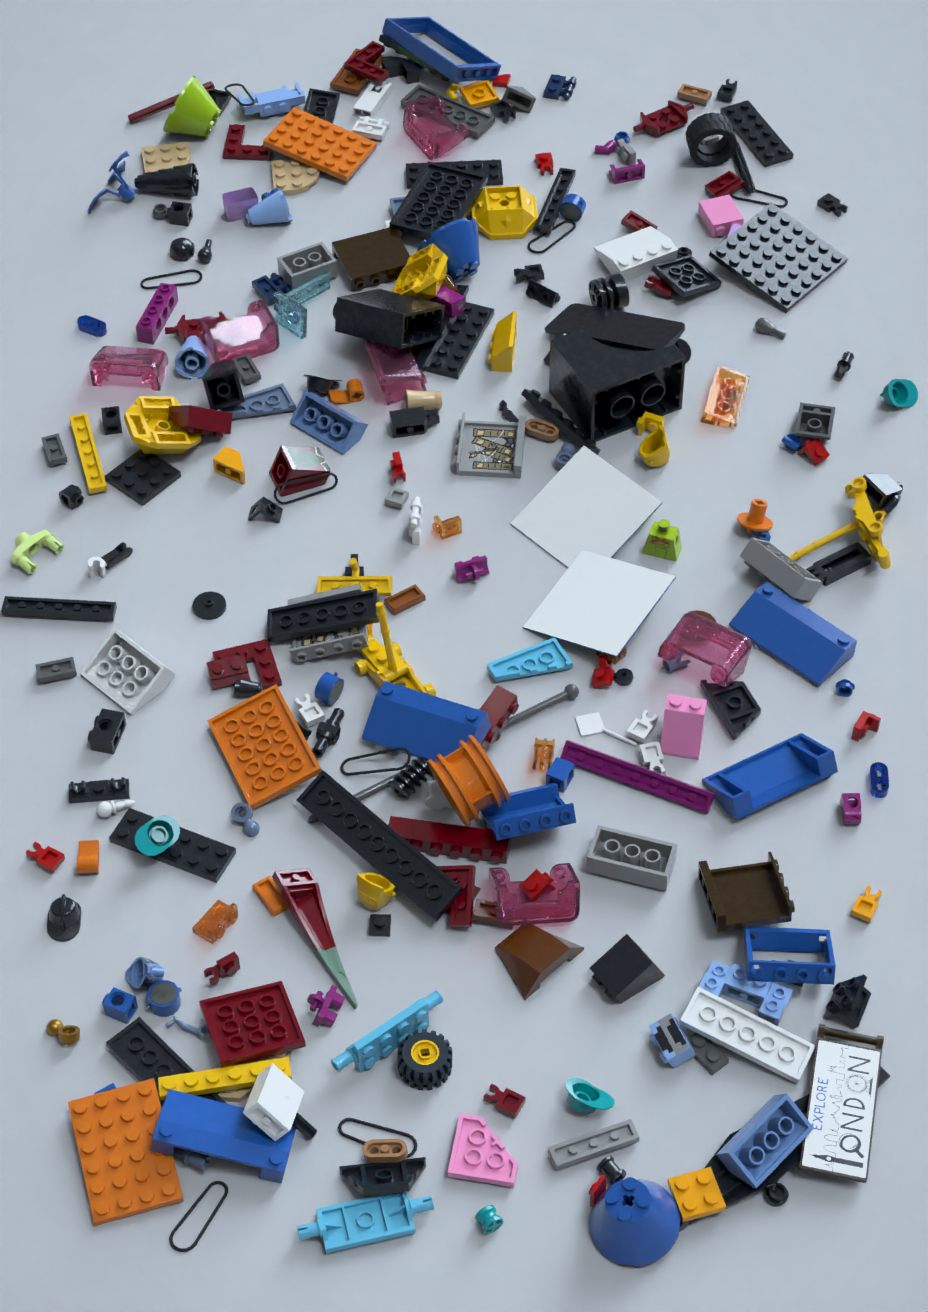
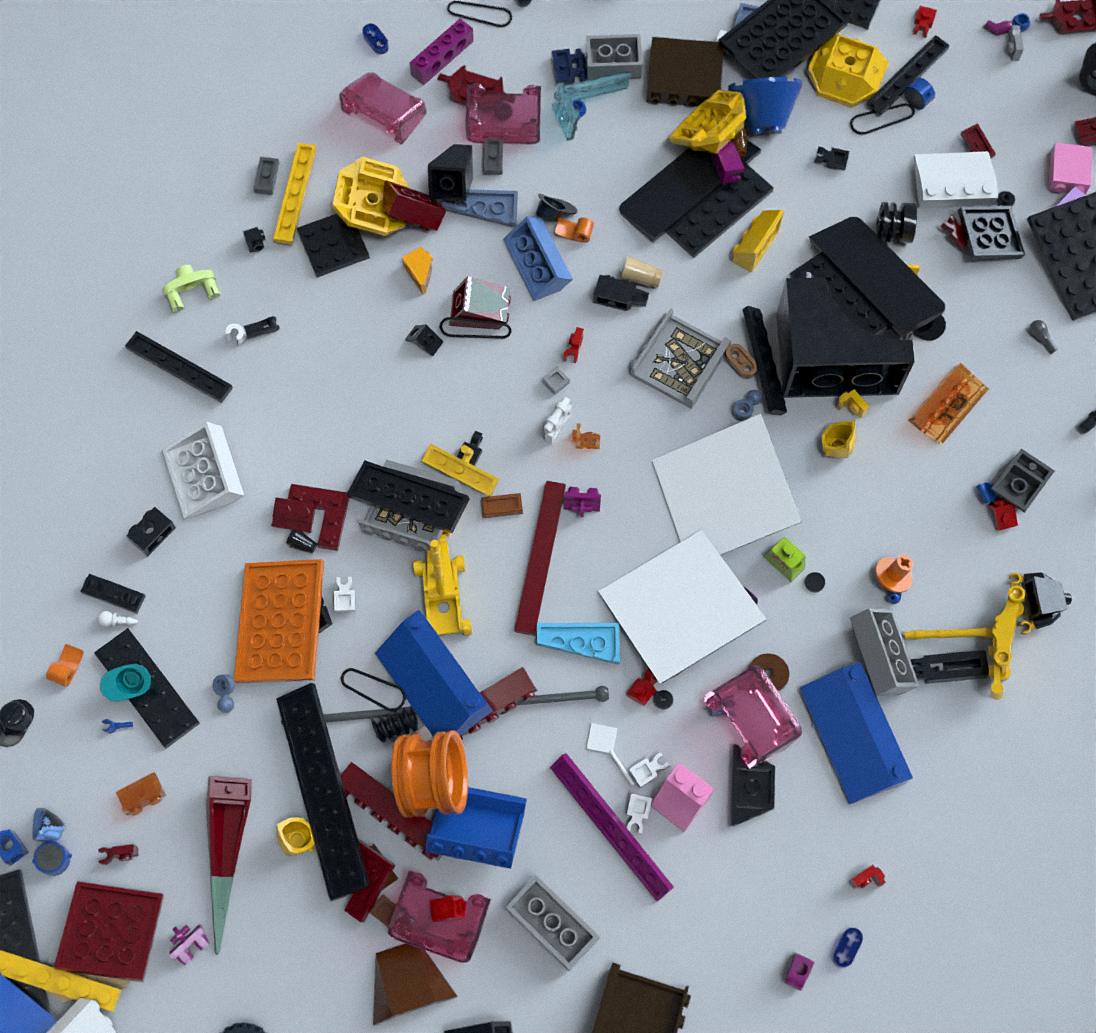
camera: 25 degrees right, 20 degrees up
(46, 858) = (29, 649): red plate -> none
(56, 670) = (141, 437): dark grey plate -> none
(111, 420) = (334, 155): black brick -> none
(159, 883) = (113, 726): none -> blue hand
(192, 358) = (446, 121): light blue cone -> none
(202, 1029) = (55, 893): sand blue piece -> none
(209, 605) = (318, 425): black piece -> none
(269, 895) = (200, 781): orange tile -> none
(328, 732) = (348, 630): black pin -> none
(329, 688) = (373, 581): blue piece -> none
(380, 925) = (284, 874): black plate -> none
(388, 1036) = (215, 1015): medium azure plate -> none
(389, 318) = (651, 166): black brick -> none
(395, 370) = (632, 221): clear pink windscreen -> none
(460, 622) = (540, 558): none -> dark red tile
(508, 414) = (719, 324): black piece -> none
(542, 293) = (830, 186): black hinge -> none
(543, 749) = (536, 754): clear orange arm -> none
(561, 773) = (539, 787): blue brick -> none
(627, 173) = (1003, 70): magenta hinge -> none
(695, 553) = (815, 582): none -> black piece
(771, 775) = (742, 889): blue slope -> none
(845, 687) = (874, 820): blue plate -> none

